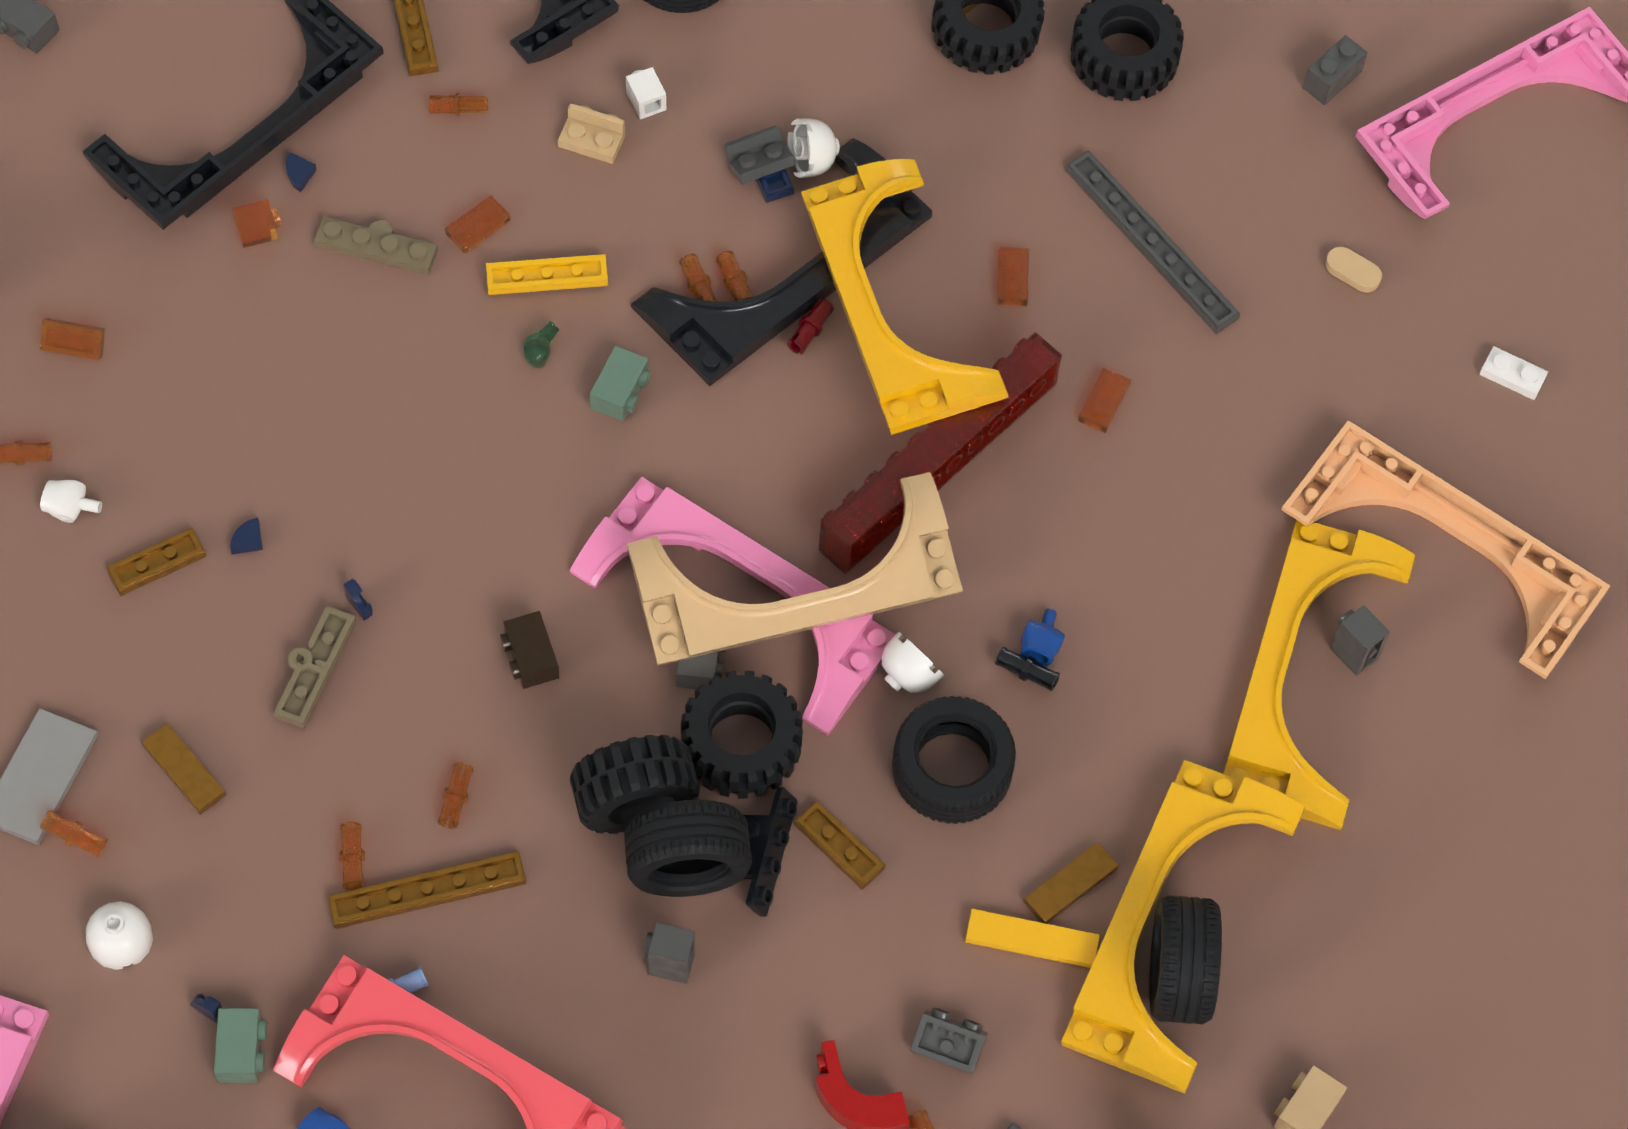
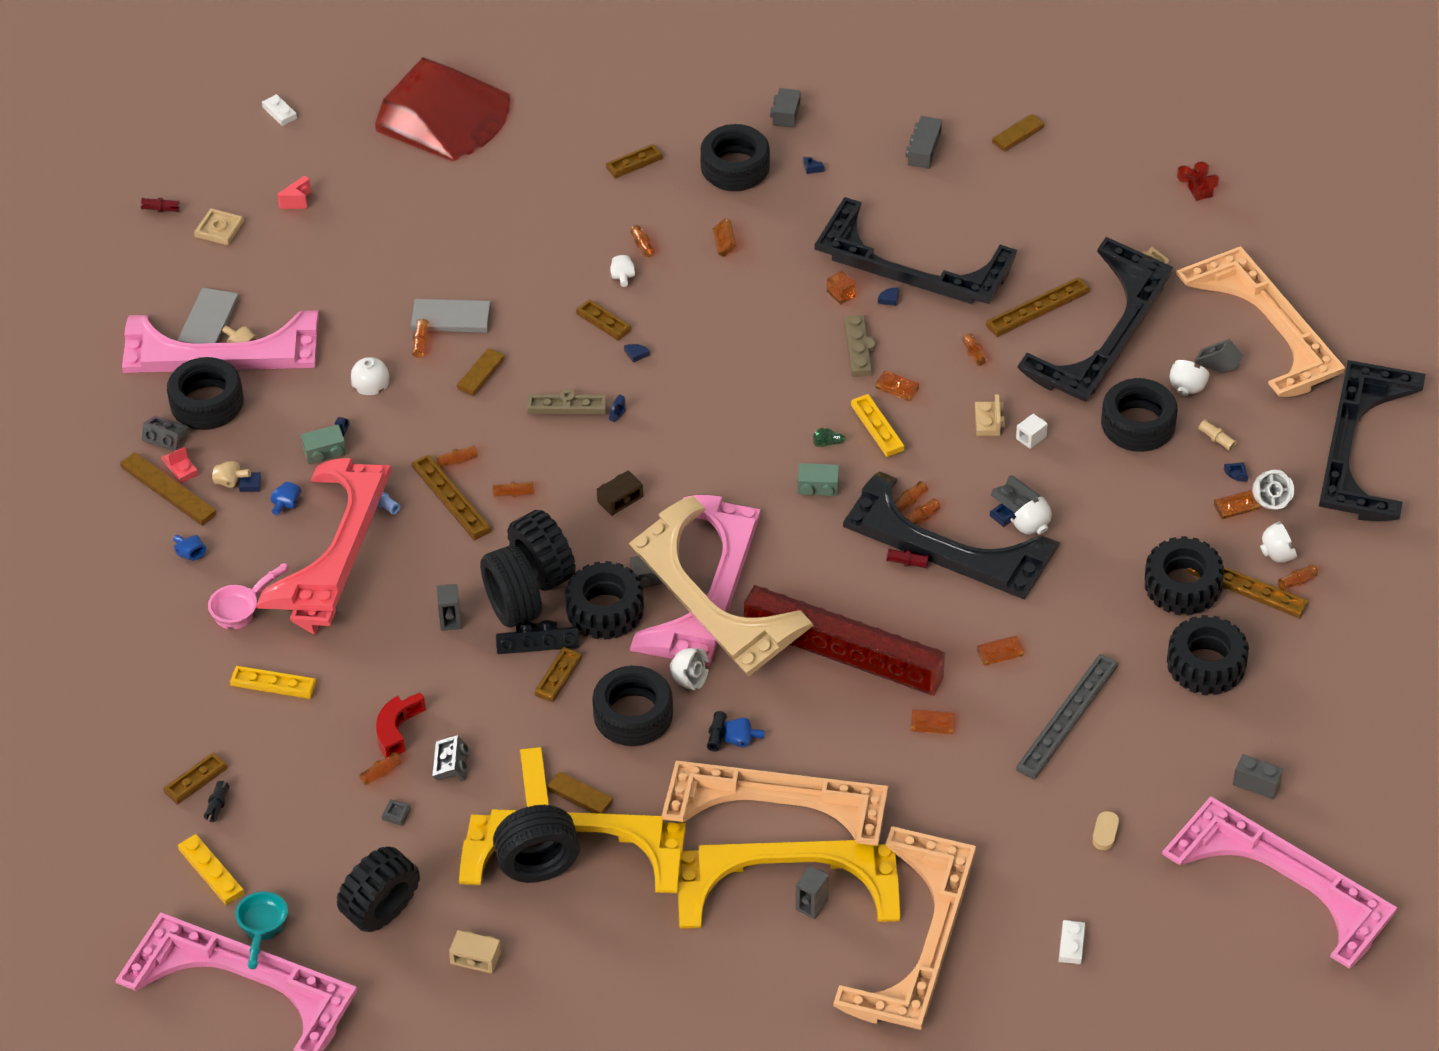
camera: 75 degrees right, 15 degrees down
(907, 383) = (870, 596): yellow piece -> none
(1218, 540) = (700, 786): none -> light nougat piece

